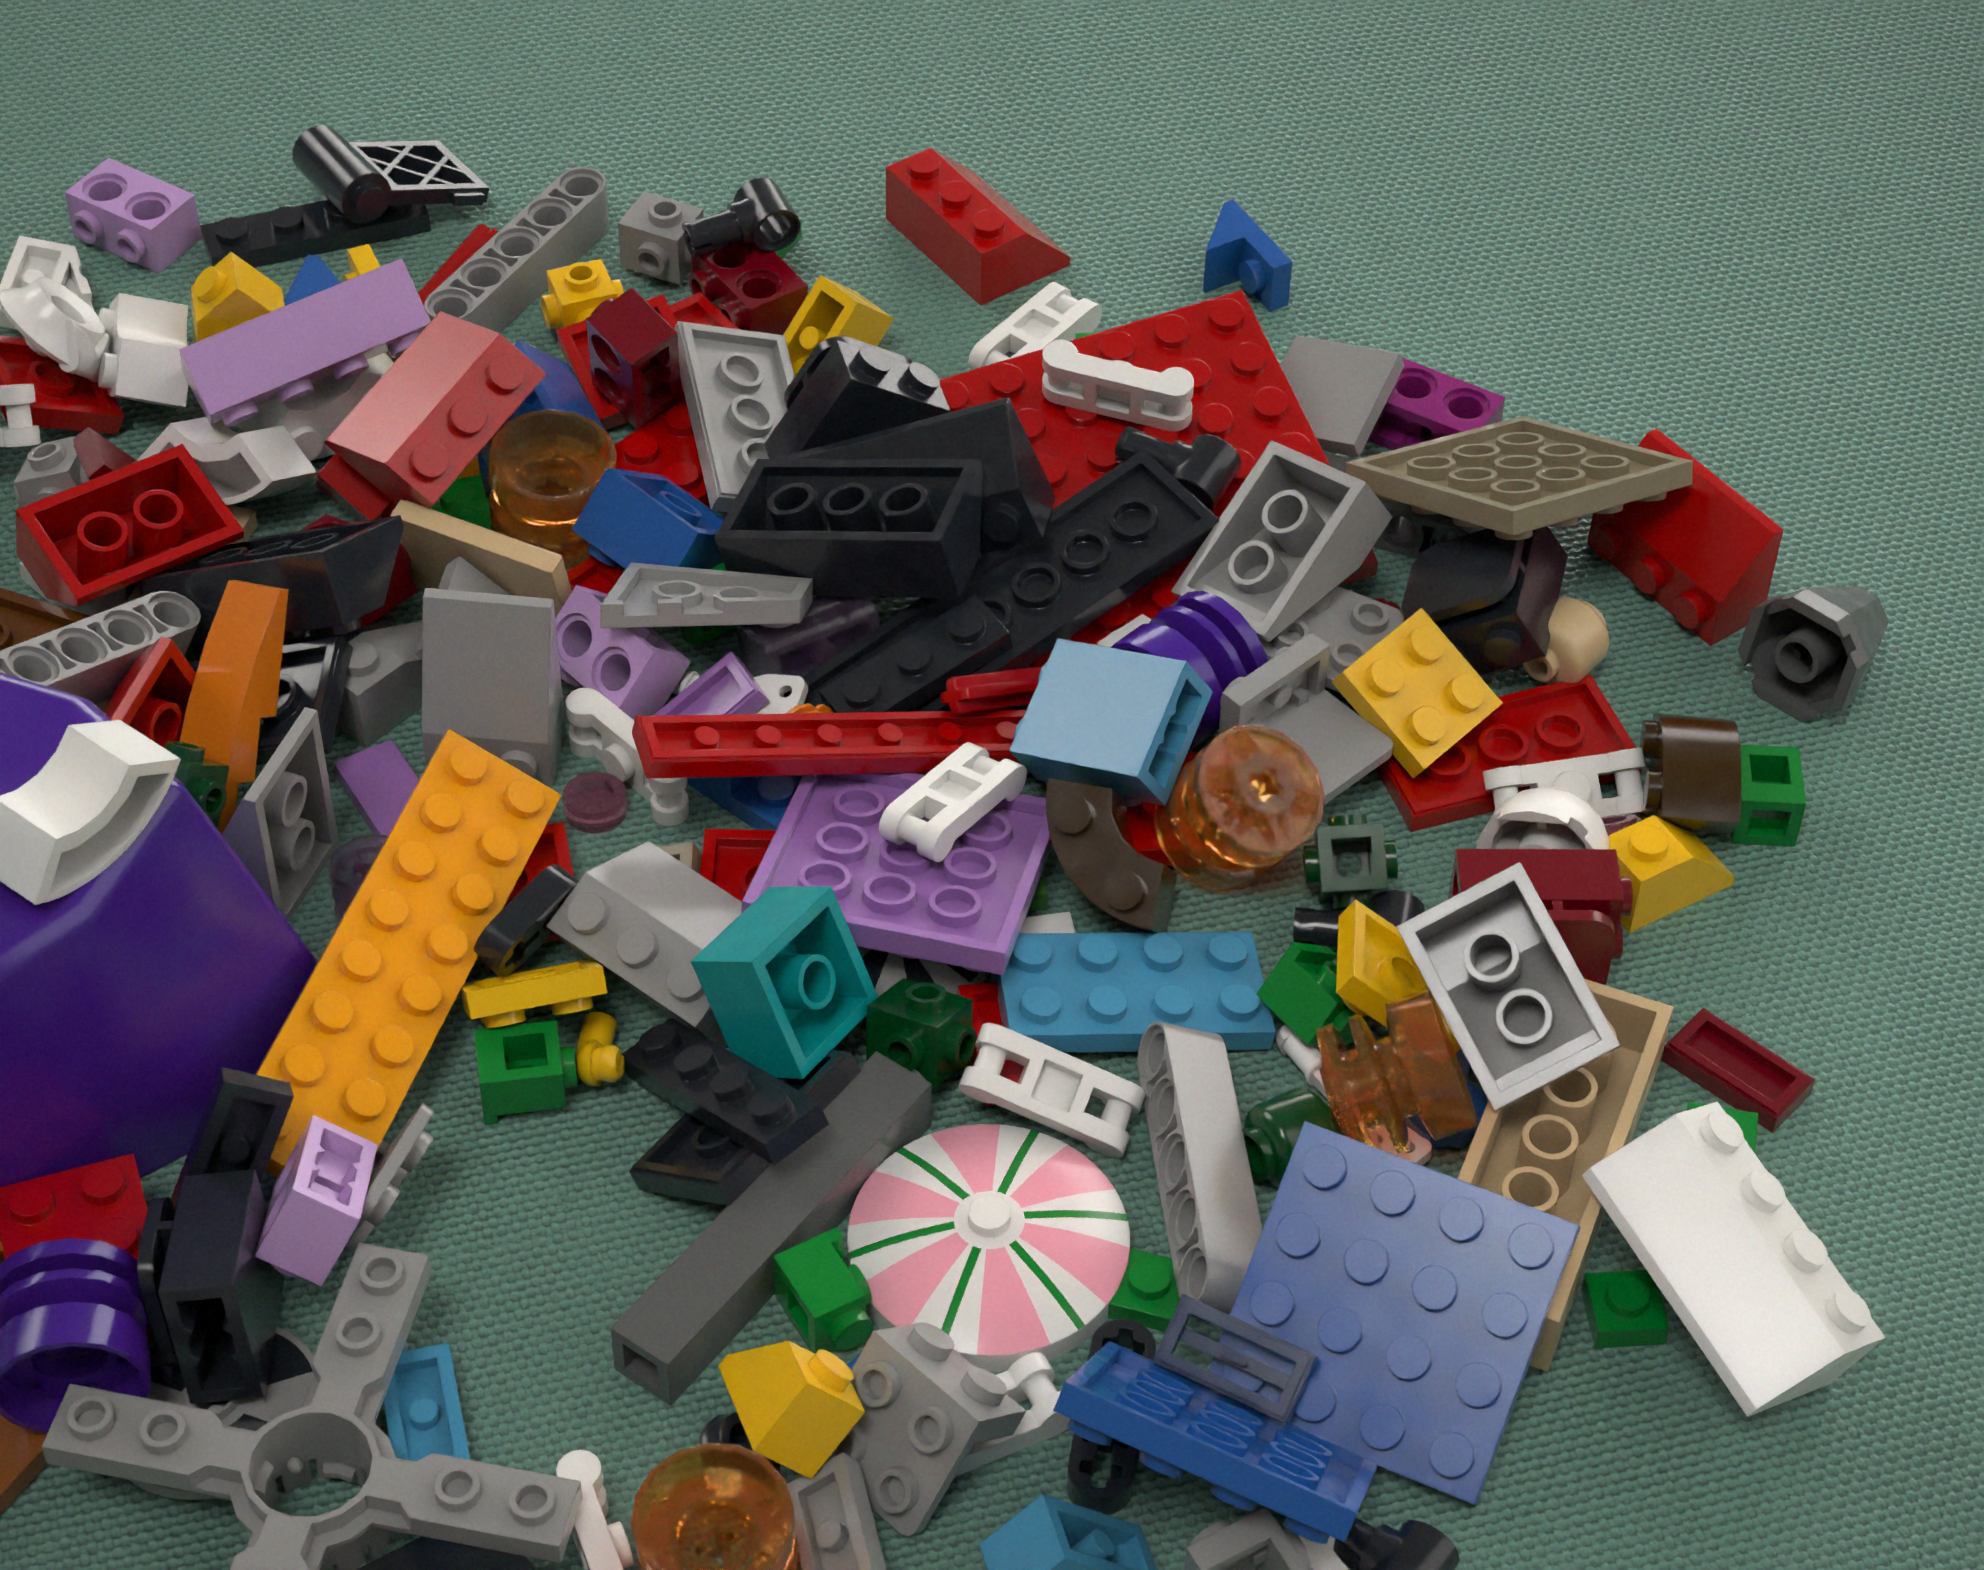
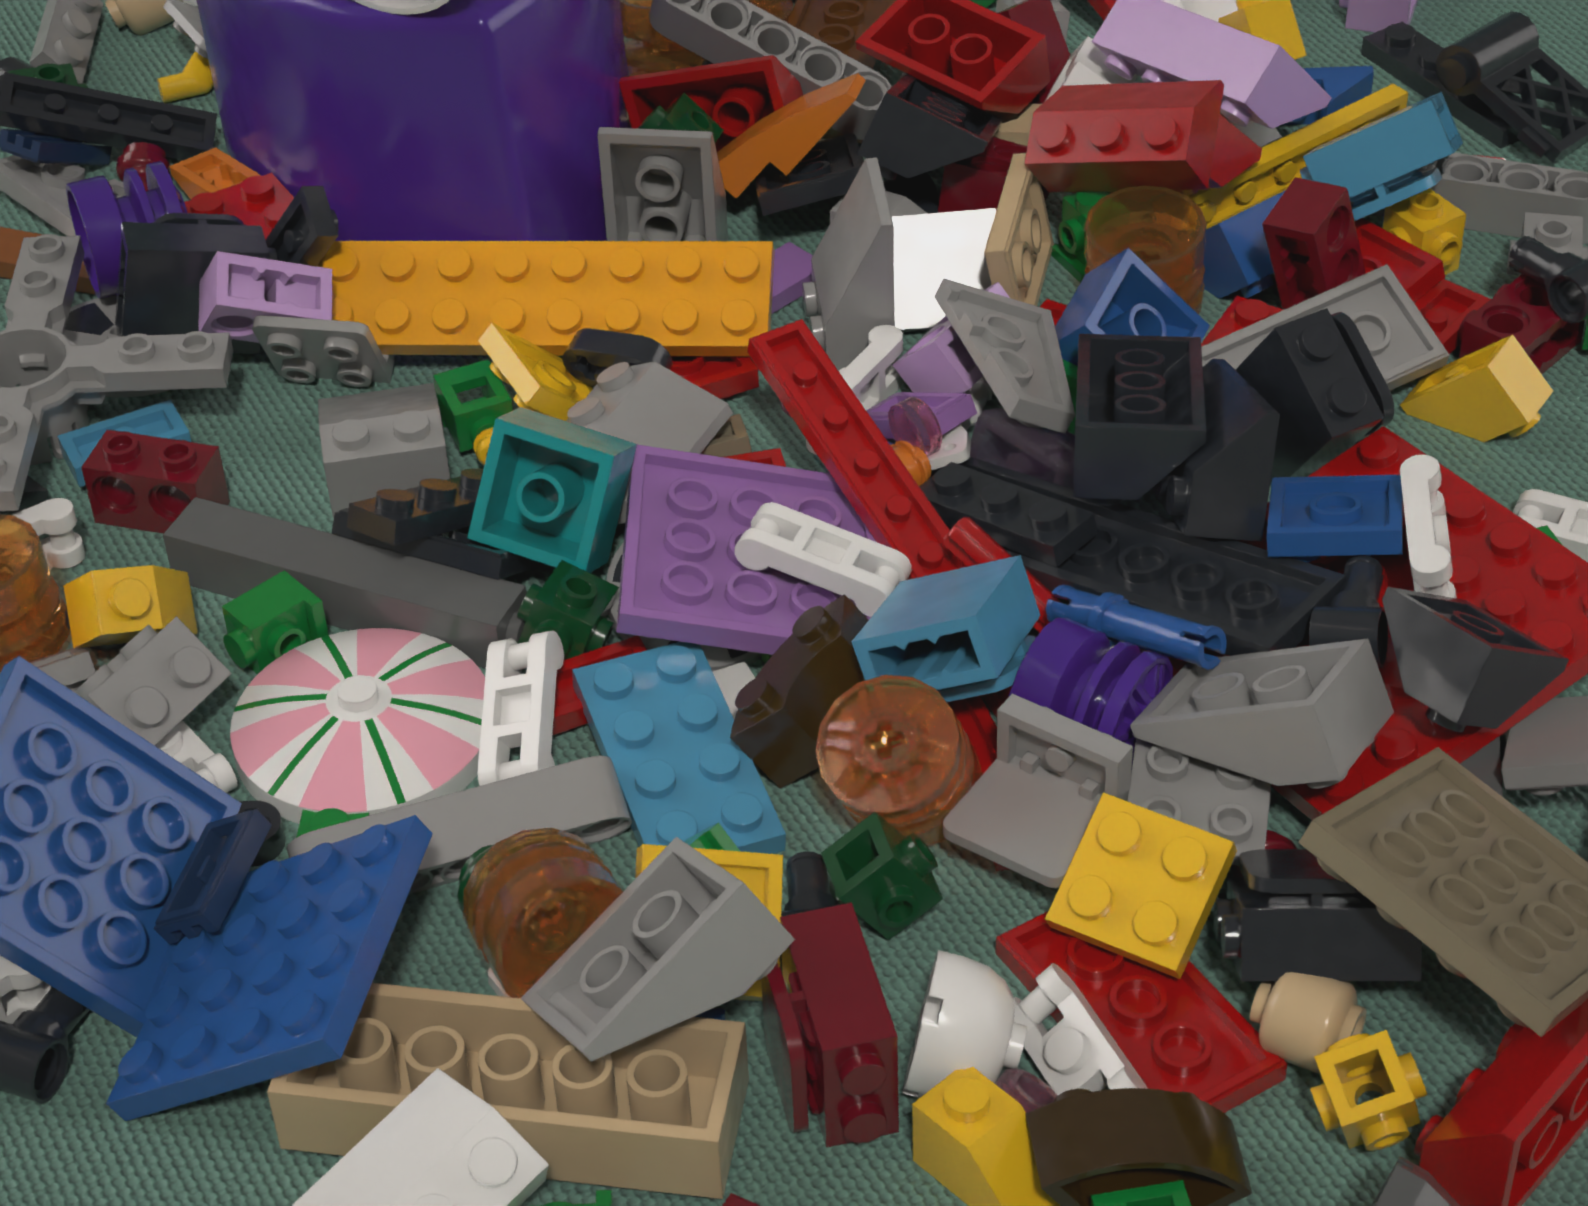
camera: 80 degrees right, 5 degrees down
(526, 267) = (1383, 157): none -> dark azure brick
(529, 1165) = (381, 442): none -> light grey slope
(536, 1382) = (150, 479): none -> dark red brick
(768, 694) = (916, 424): none -> clear pink tile
(1073, 429) = (1335, 516): none -> blue plate
(1136, 602) = (1140, 626): none -> blue pin
(1284, 401) = (1465, 659): none -> black slope
(1654, 623) = (1364, 1065): none -> yellow brick

